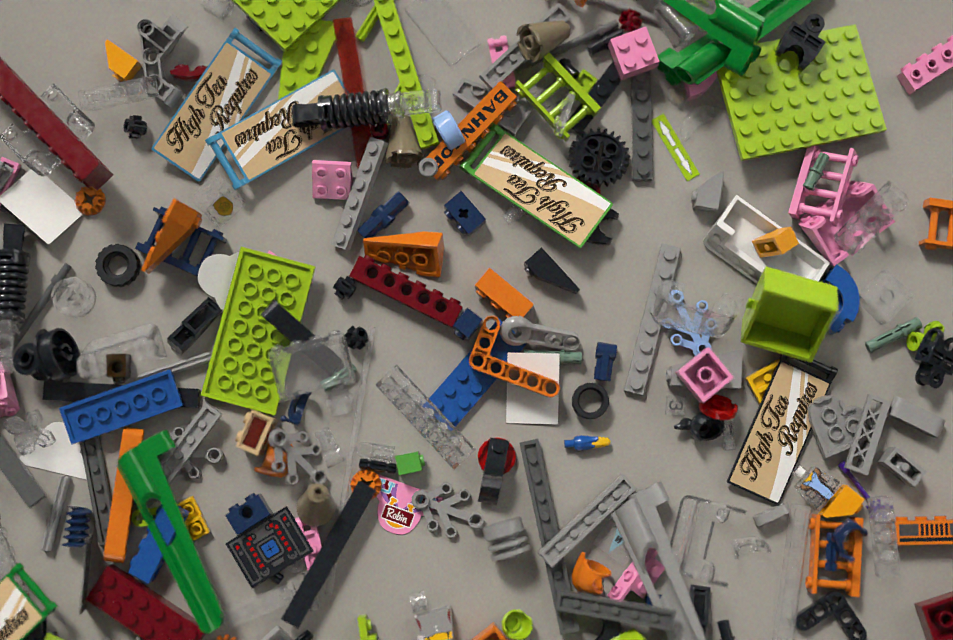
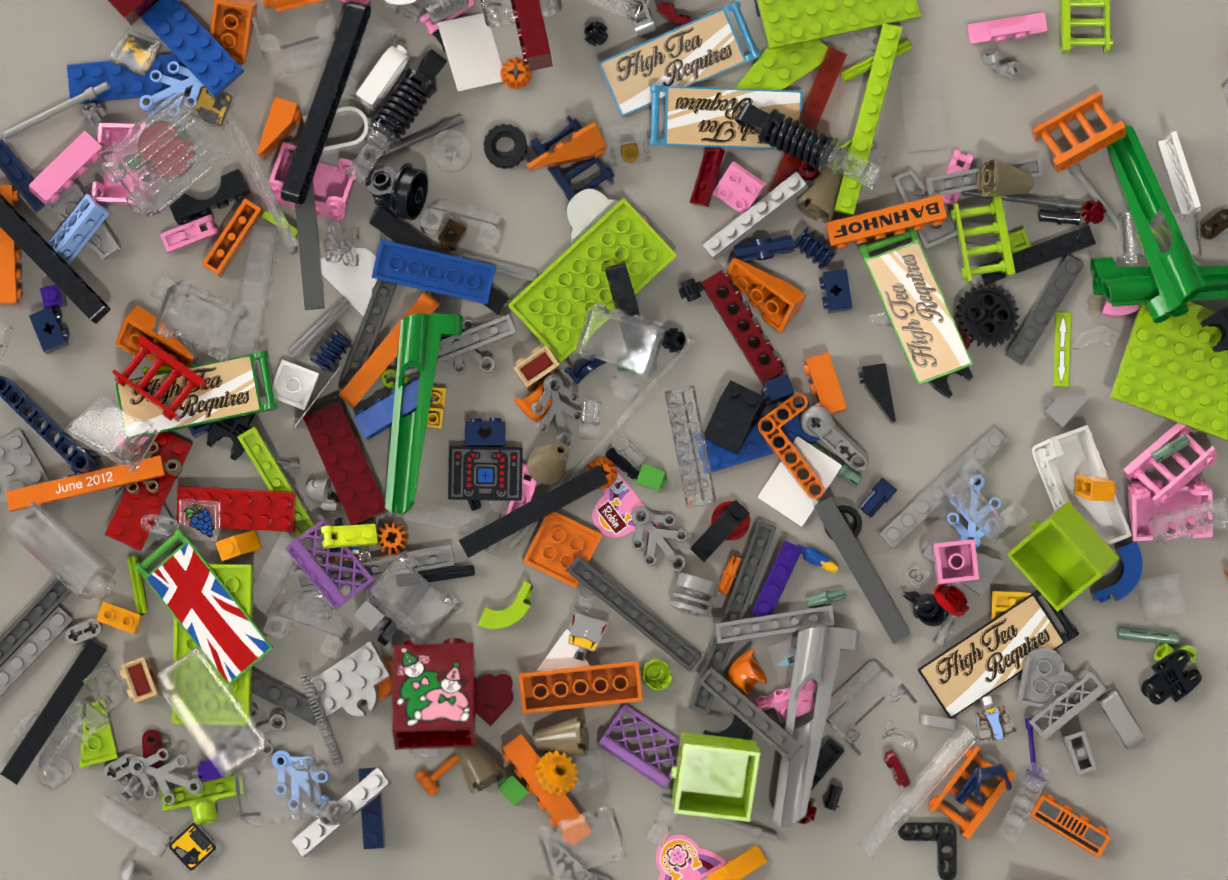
camera: 40 degrees right, 0 degrees up
(62, 574) = (294, 384): none -> white plate
(194, 326) = (538, 241): black slope -> none
(300, 186) = (707, 176): none -> dark red plate
(373, 568) = (559, 544): none -> orange plate
(424, 190) = (814, 248): none -> dark blue piece
(428, 167) = (830, 230): light grey tile -> none
(446, 369) = (734, 417): none -> black slope
(448, 130) = (869, 208): light blue animal -> none
(465, 585) = (633, 613): none -> dark grey tile
(524, 502) = (729, 575): none -> orange axle
(565, 107) = (983, 254): clear plate -> none
(565, 481) = (777, 579): none -> dark purple plate
(566, 63) = (1010, 216): black pin -> none
(614, 470) = (825, 597): none -> sand green axle
(629, 429) = (861, 569): none -> dark grey tile
(633, 53) = (1075, 243): bright pink brick -> none
(769, 579) = (892, 762): none -> dark red plate
(842, 503) = (1007, 752): light orange slope -> none

